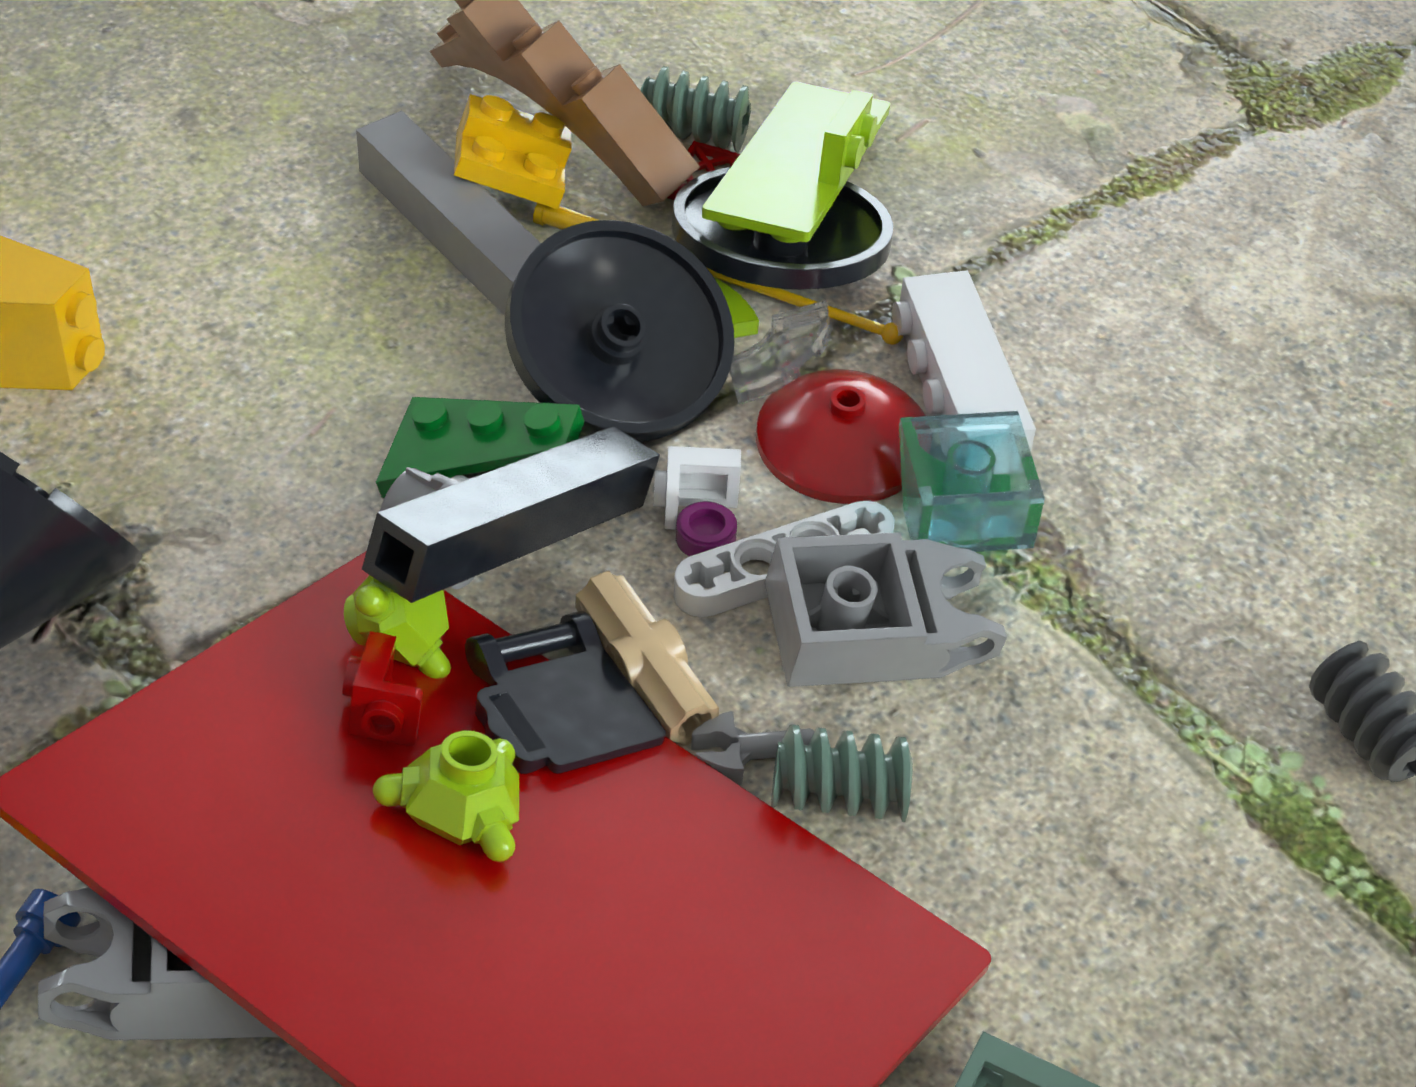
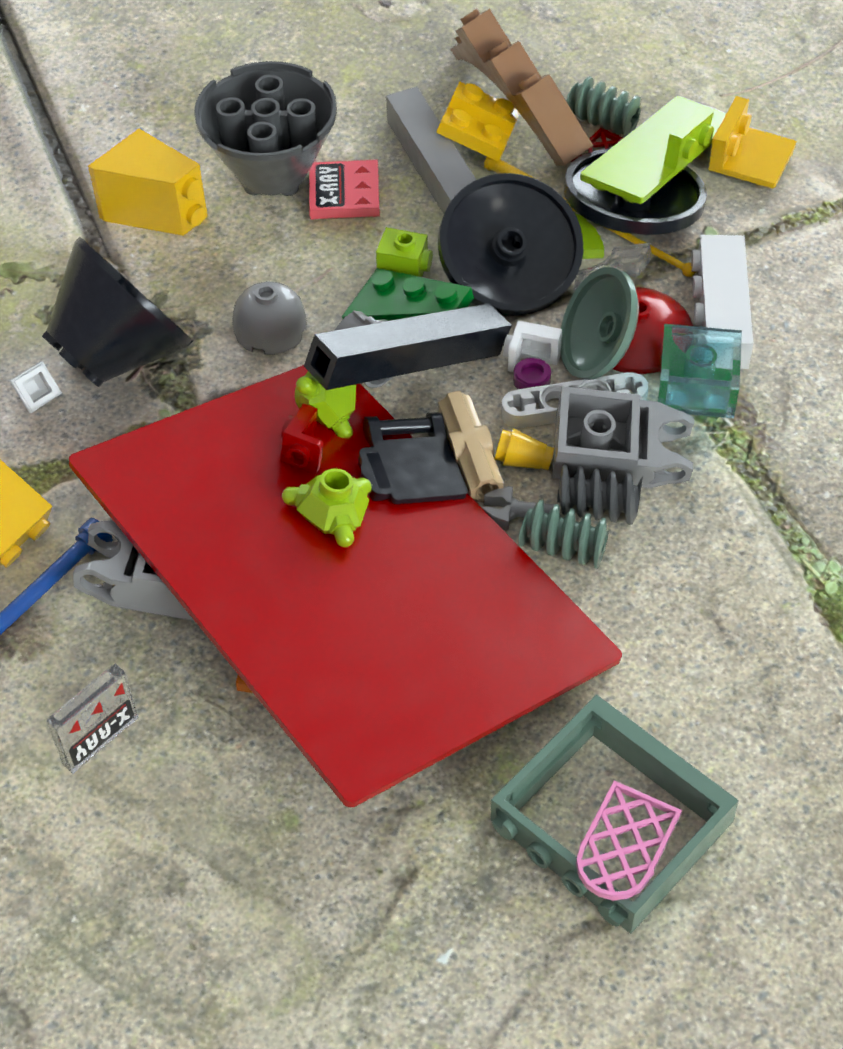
camera: 20 degrees right, 5 degrees up
(185, 192) = (267, 123): none -> dark grey cone
(256, 502) = (269, 318): none -> light grey cylinder
(322, 282) = (344, 189): none -> coral tile
(451, 365) = (404, 252): none -> lime brick
(731, 651) = (523, 451): none -> yellow cone
(800, 431) = (599, 323): none -> sand green dish
(875, 699) = (599, 494): none -> dark grey piece
(927, 150) = (748, 151): none -> yellow bracket

